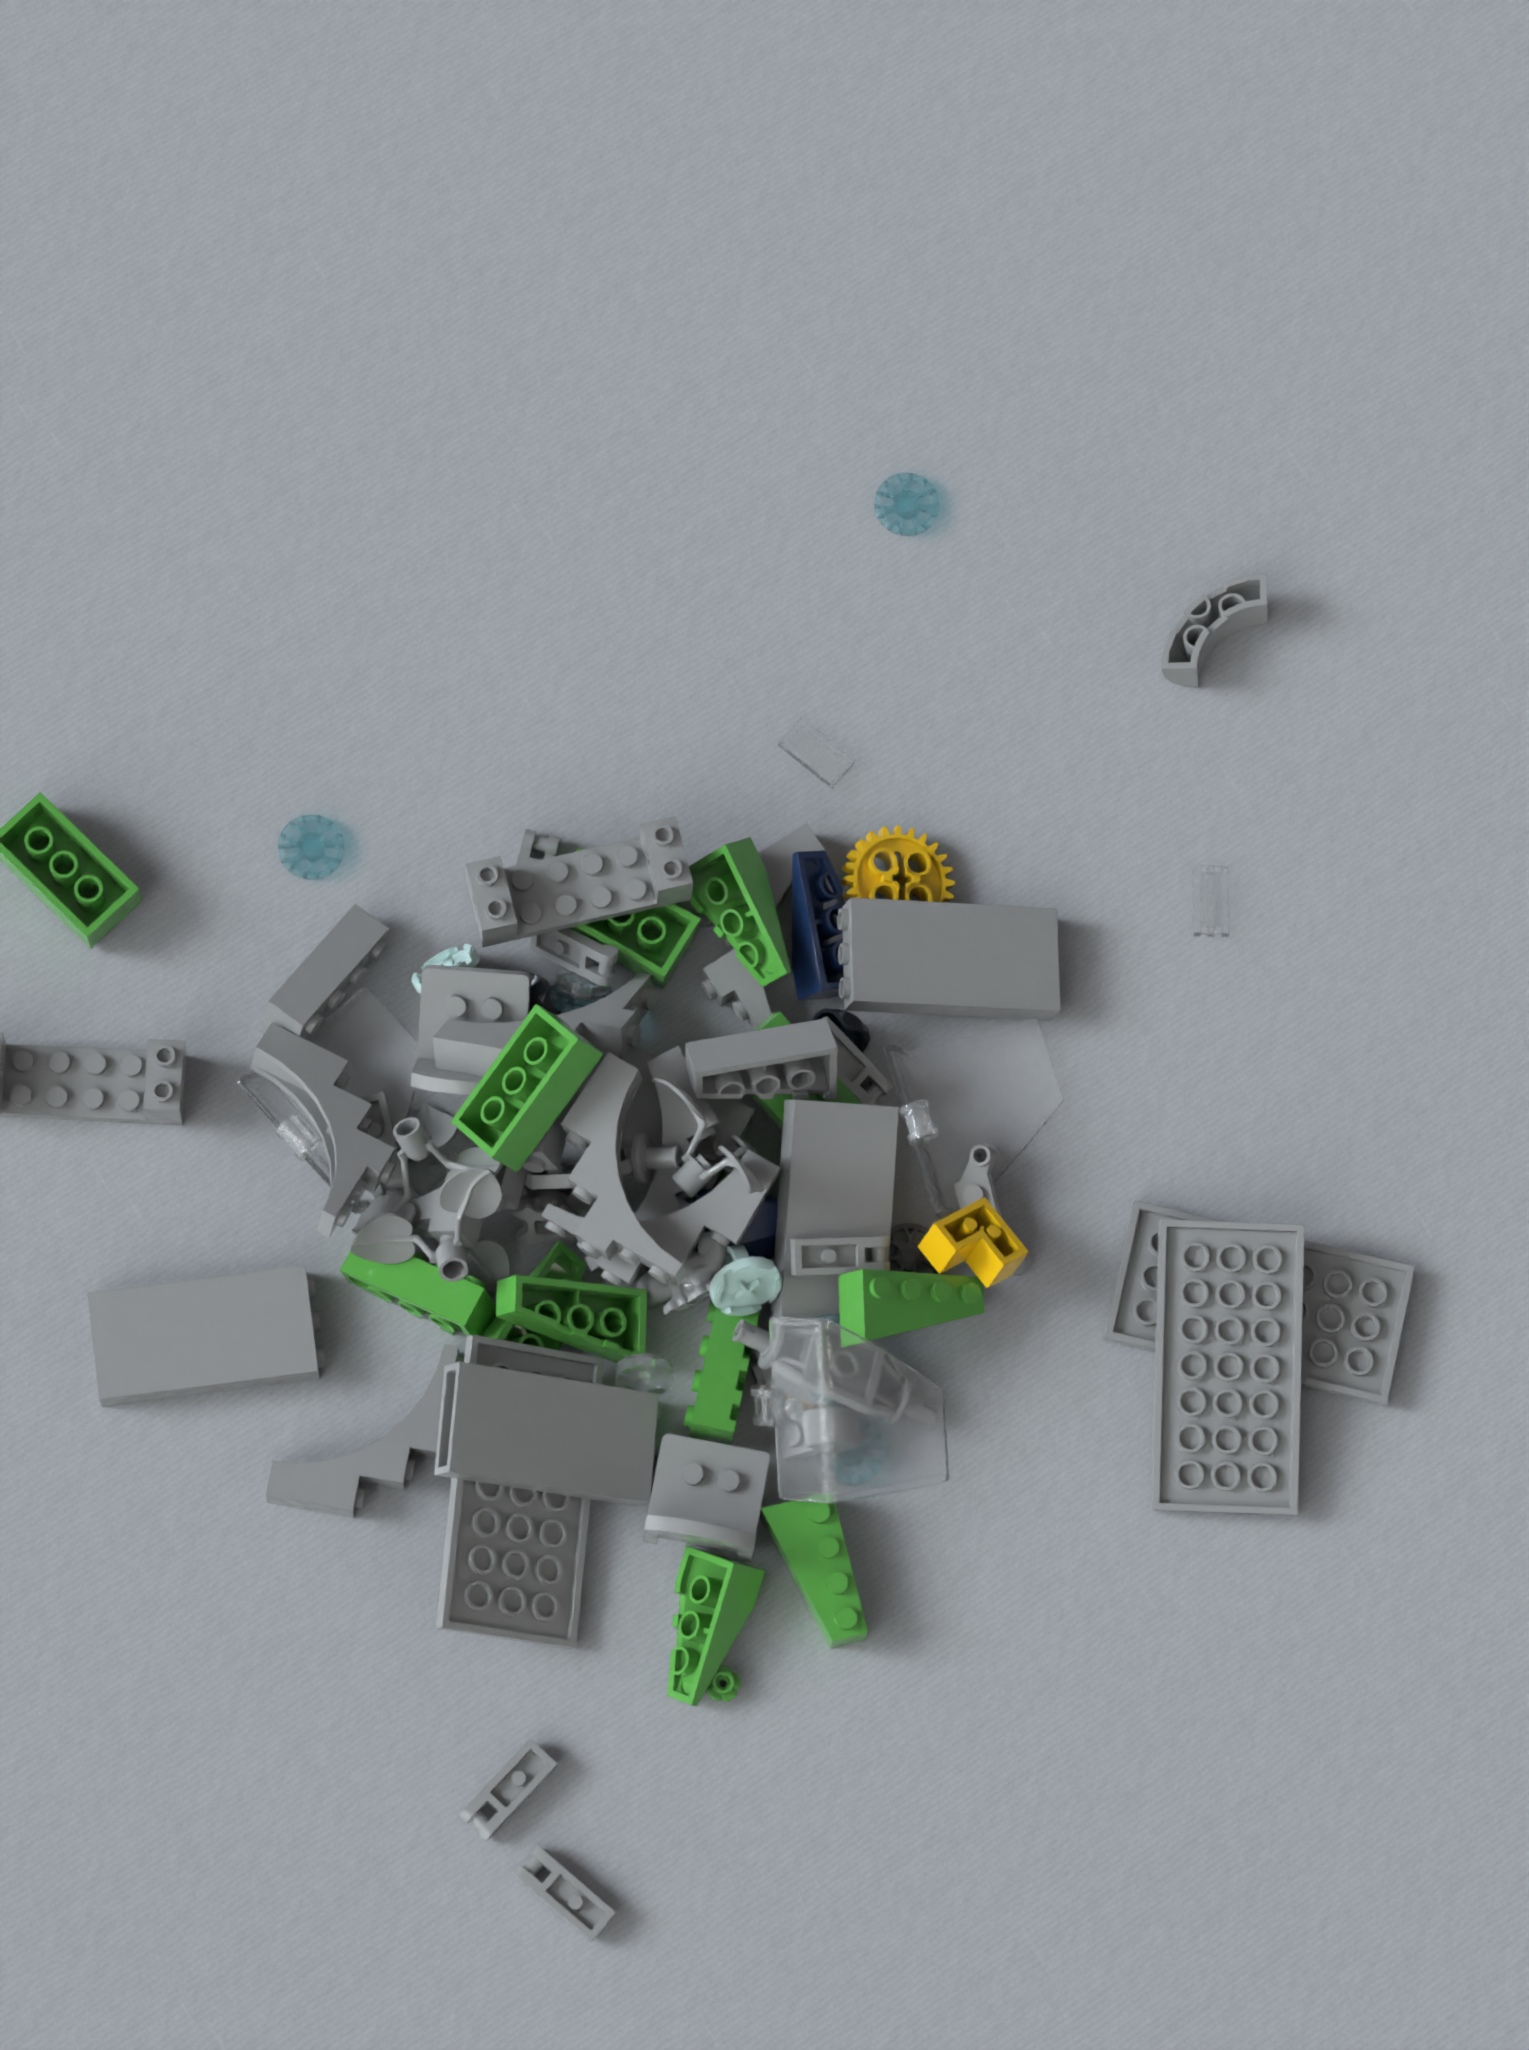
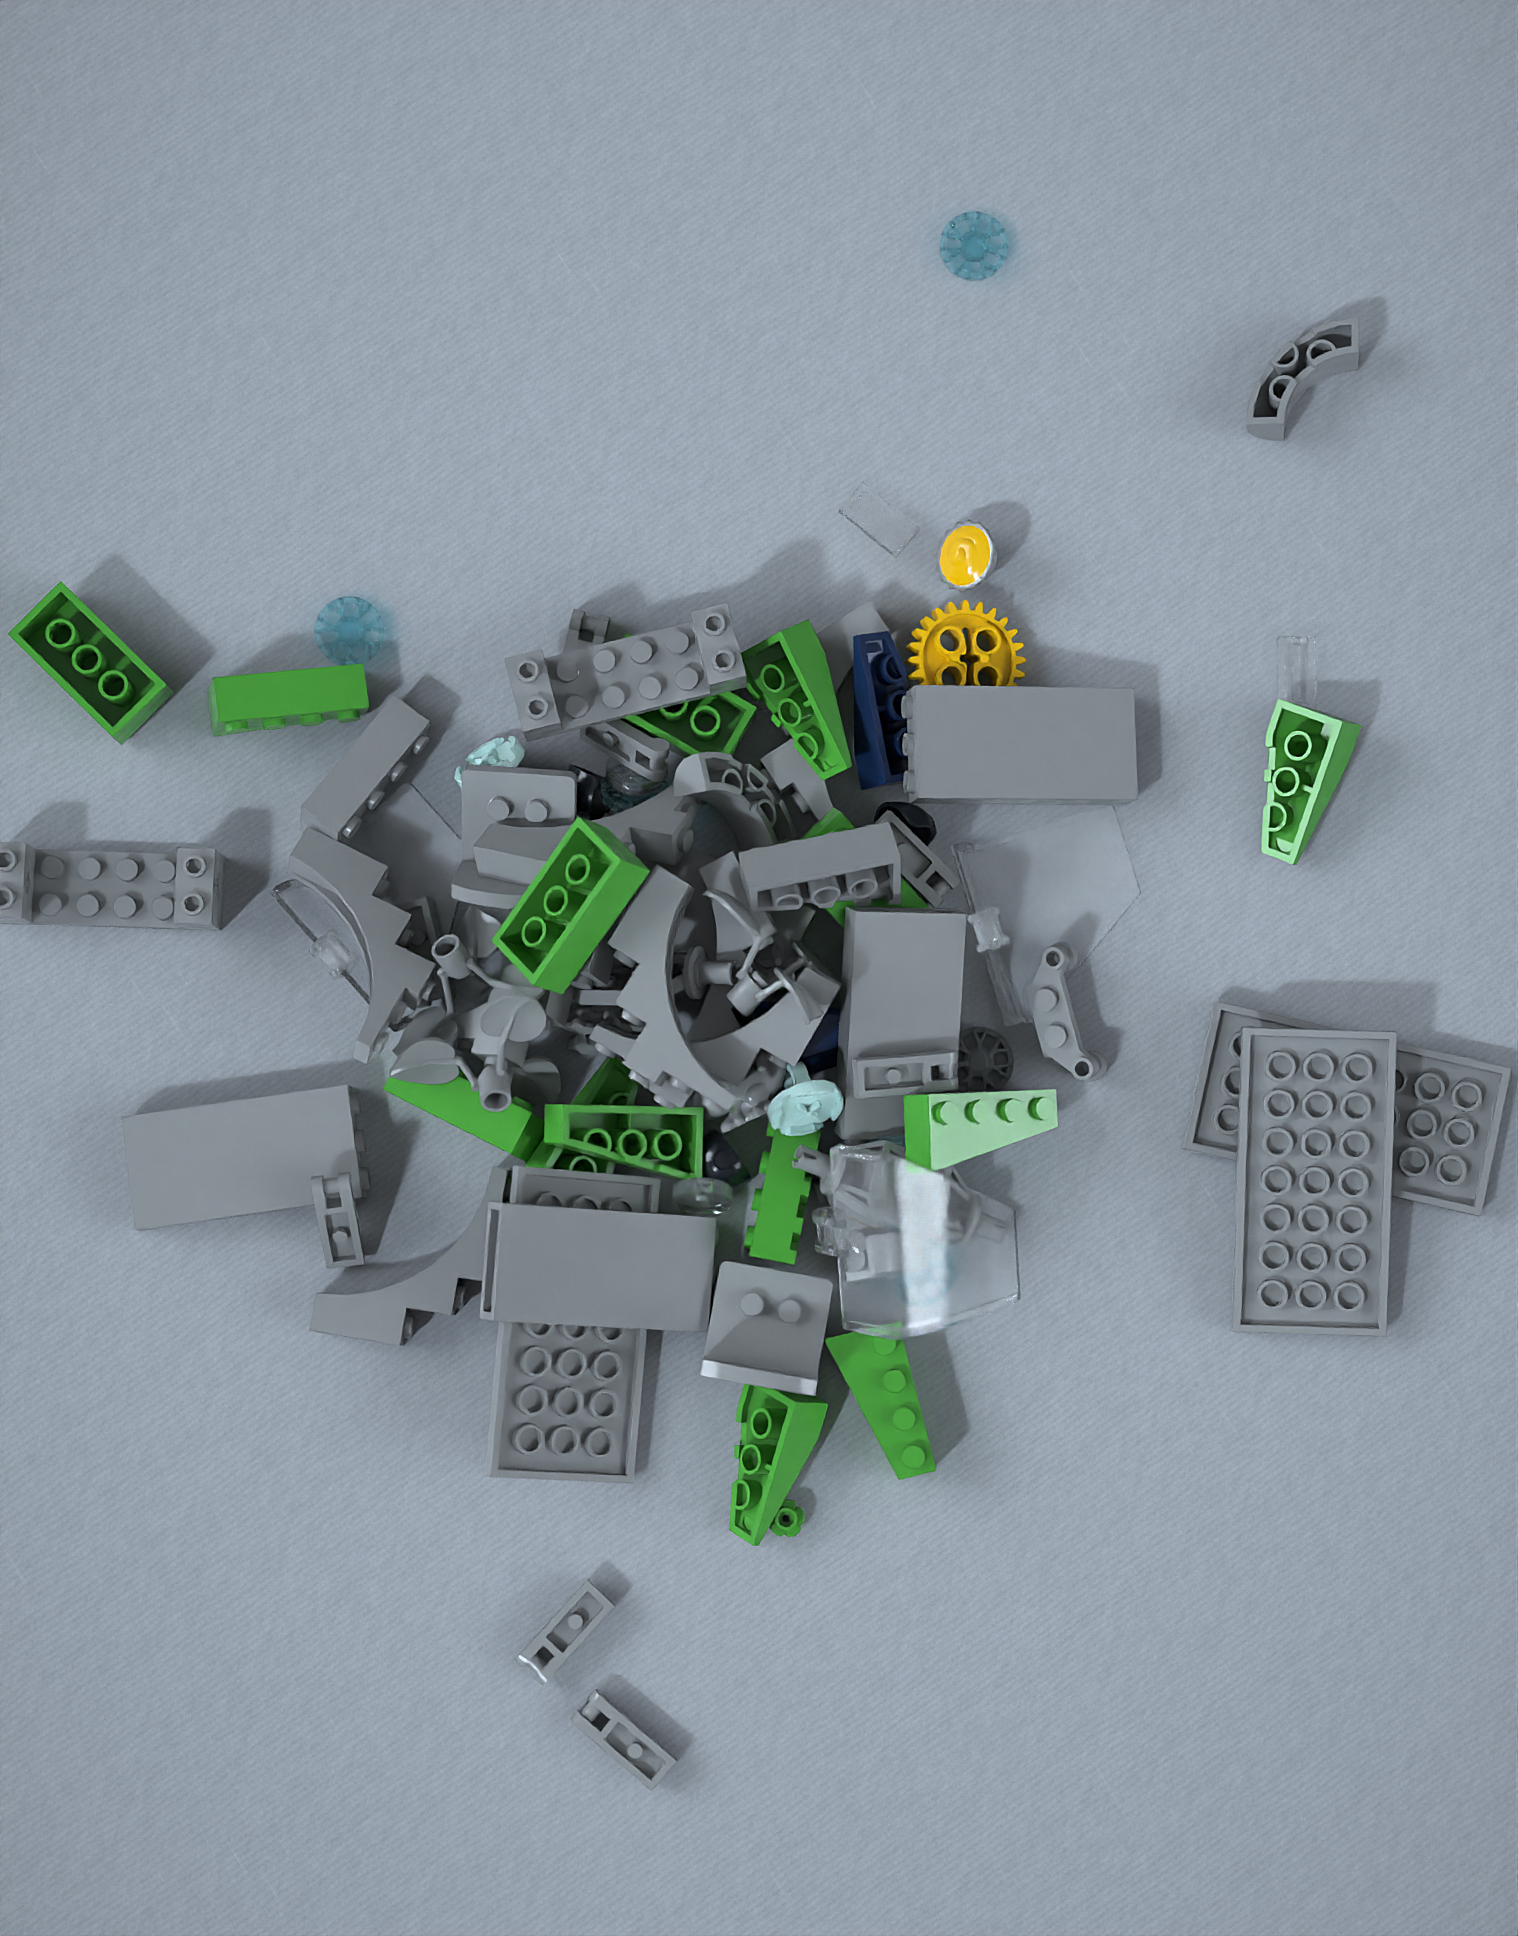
camera: 10 degrees right, 10 degrees up
(250, 906) = (287, 699): none -> bright green wedge
(295, 1393) = (338, 1221): none -> light grey plate
(666, 1342) = (722, 1162): none -> black helmet
(678, 996) = (738, 795): none -> light grey brick
(898, 785) = (966, 555): none -> yellow piece
(979, 1239) = (1050, 1050): yellow brick -> none
(1217, 988) = (1303, 770): none -> bright green wedge

